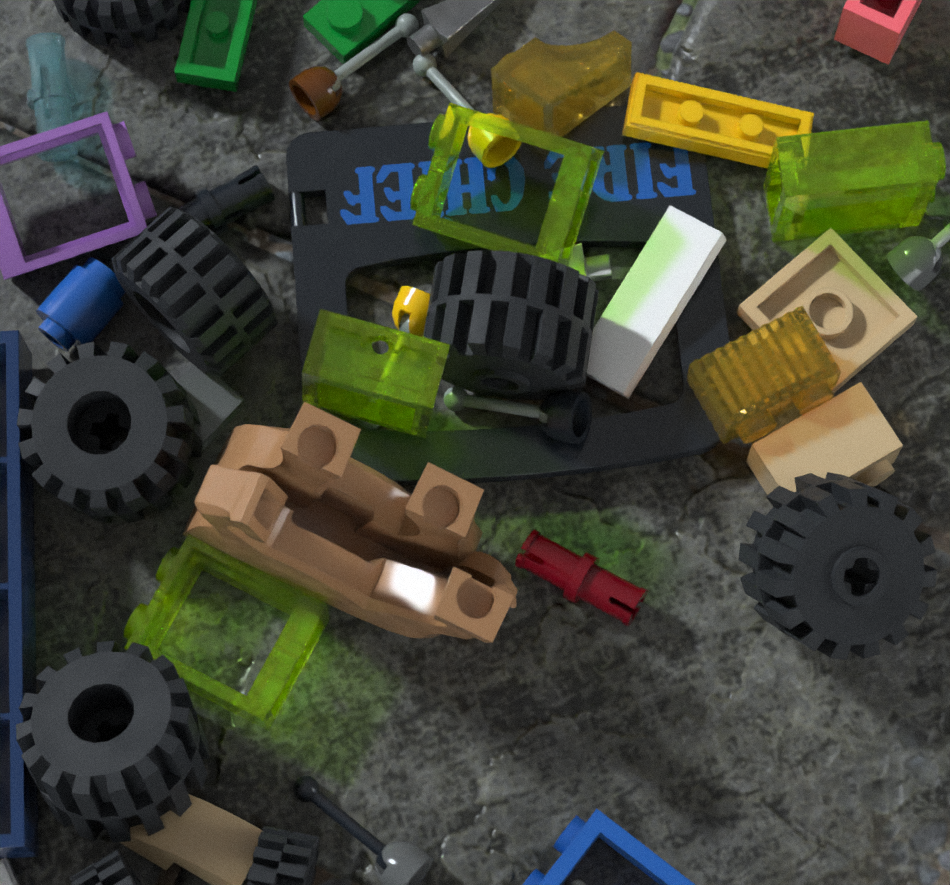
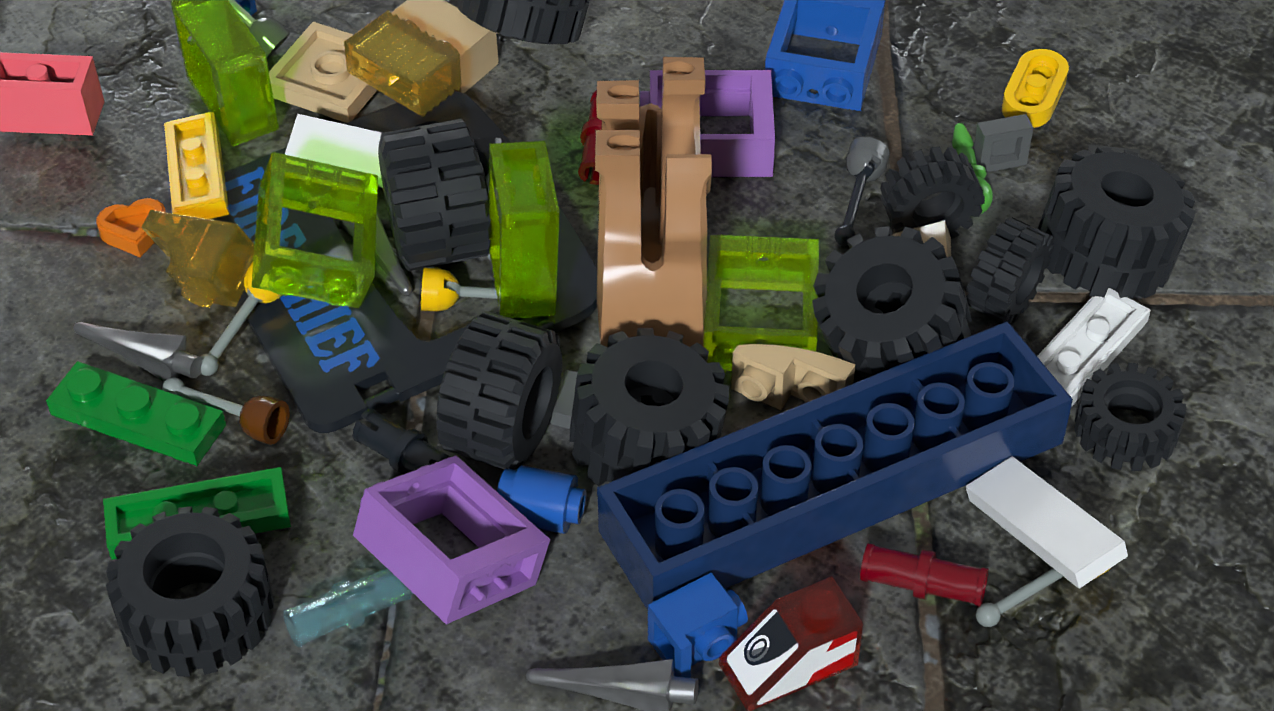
camera: 115 degrees left, 25 degrees down
(124, 589) = (777, 372): none -> tan slope
(510, 767) = (733, 95): none -> medium lavender window
(666, 44) = (122, 225): none -> orange tile

